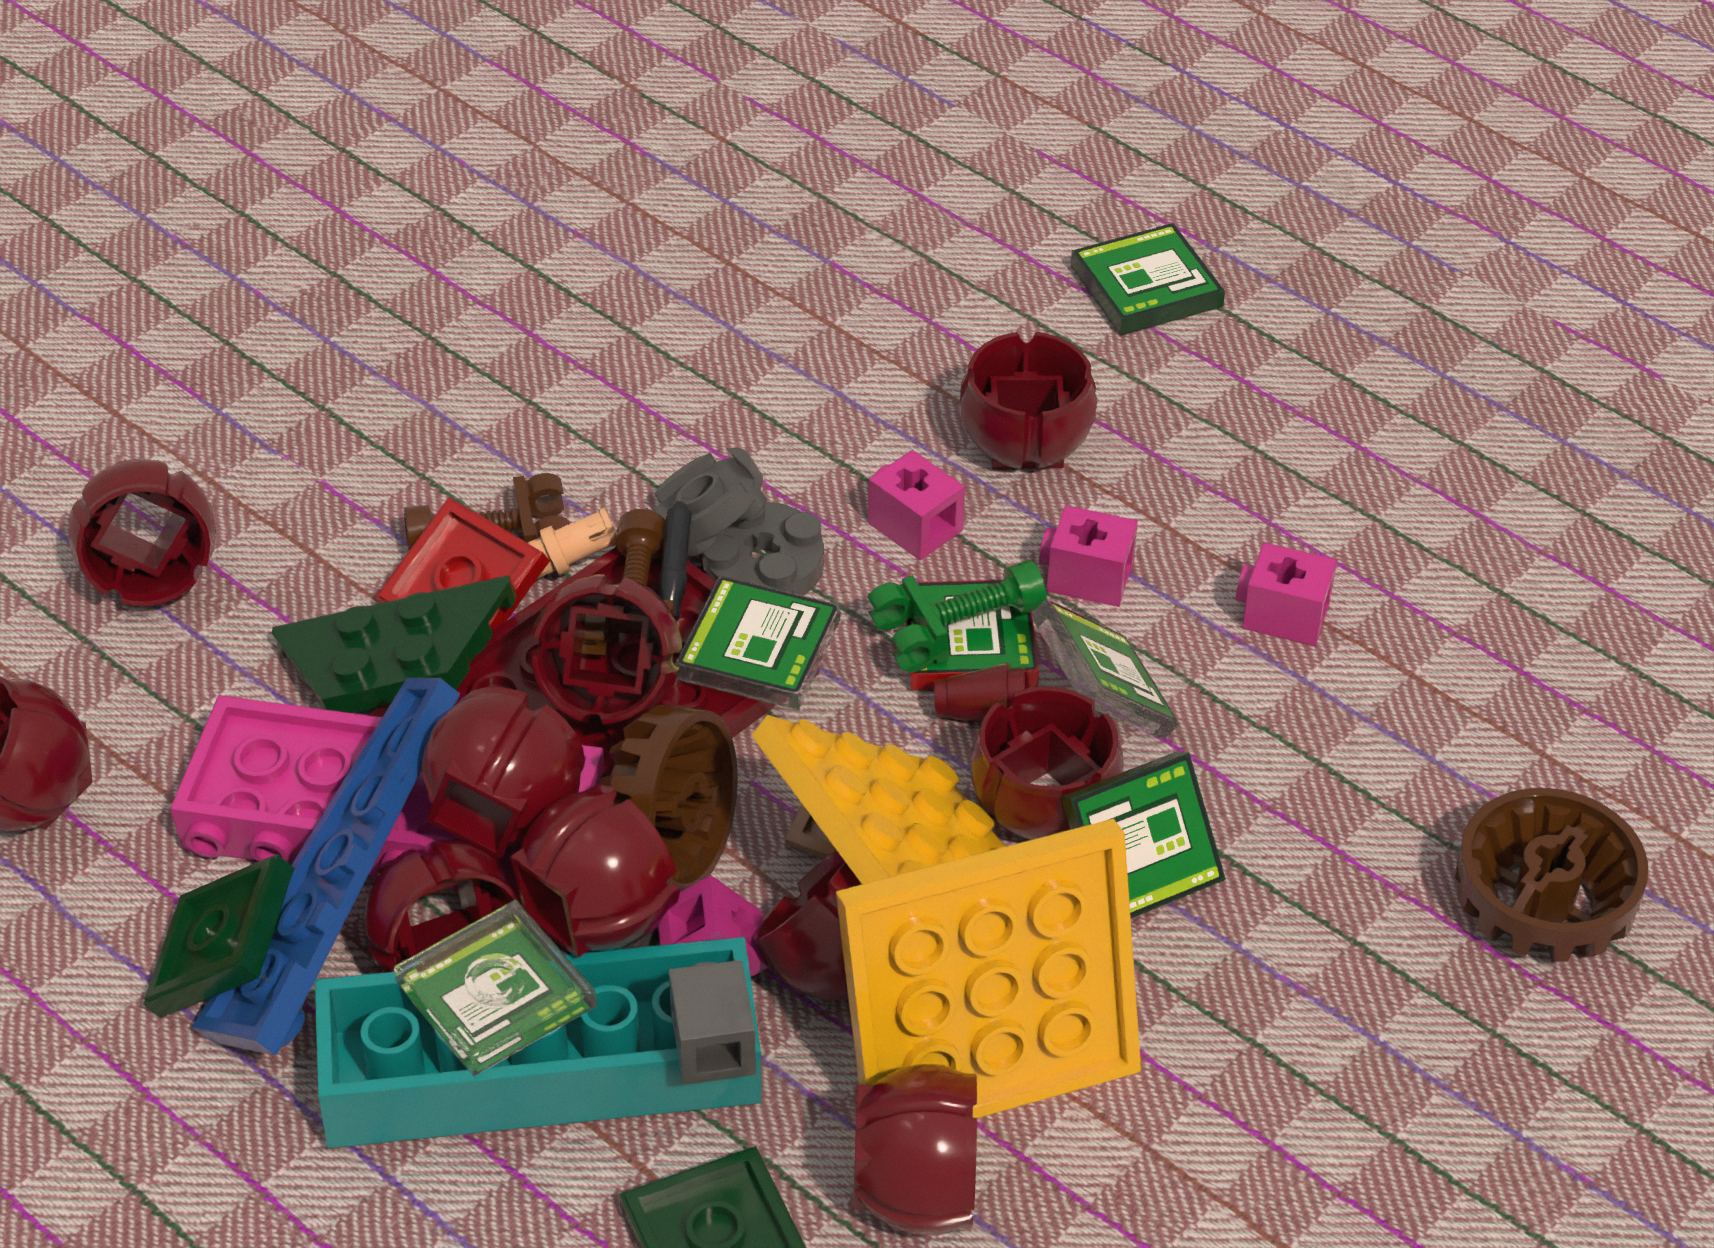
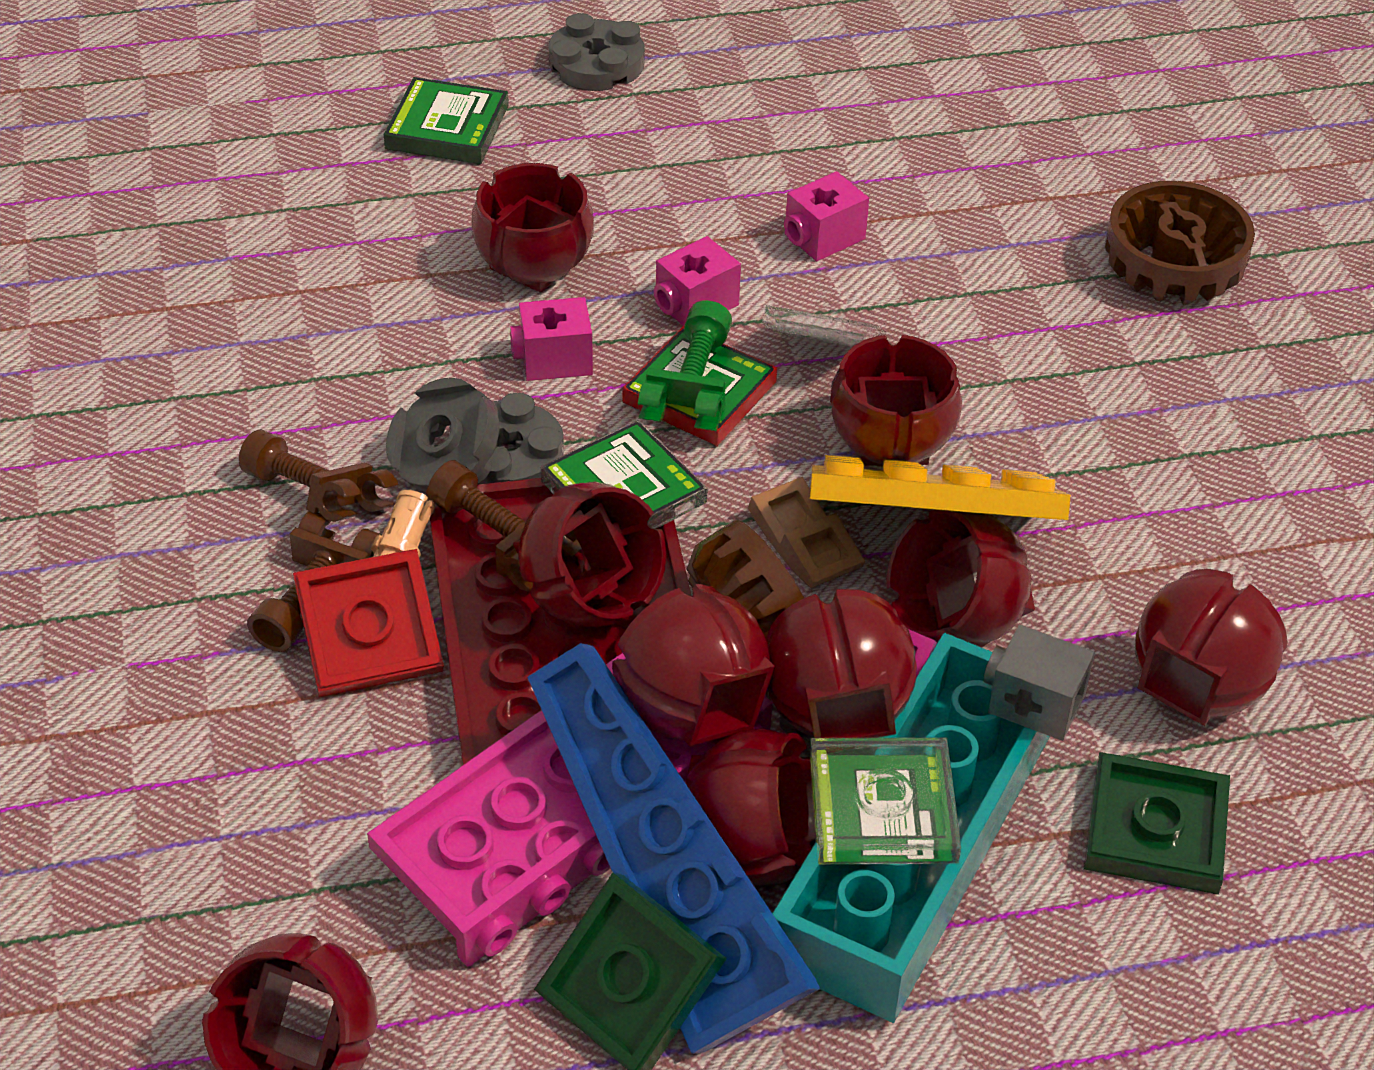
camera: 55 degrees left, 0 degrees up
(123, 562) = (109, 791): dark red piece -> none
(367, 652) = (405, 704): dark green wing -> none
(596, 418) = (267, 455): none -> reddish brown bar
(673, 576) = (503, 485): black piece -> none
(975, 692) = (777, 404): dark red cone -> none
(999, 968) = (1114, 514): yellow plate -> none
(1164, 829) = (1000, 393): tile -> none
(1335, 323) = (618, 47): none -> dark grey plate

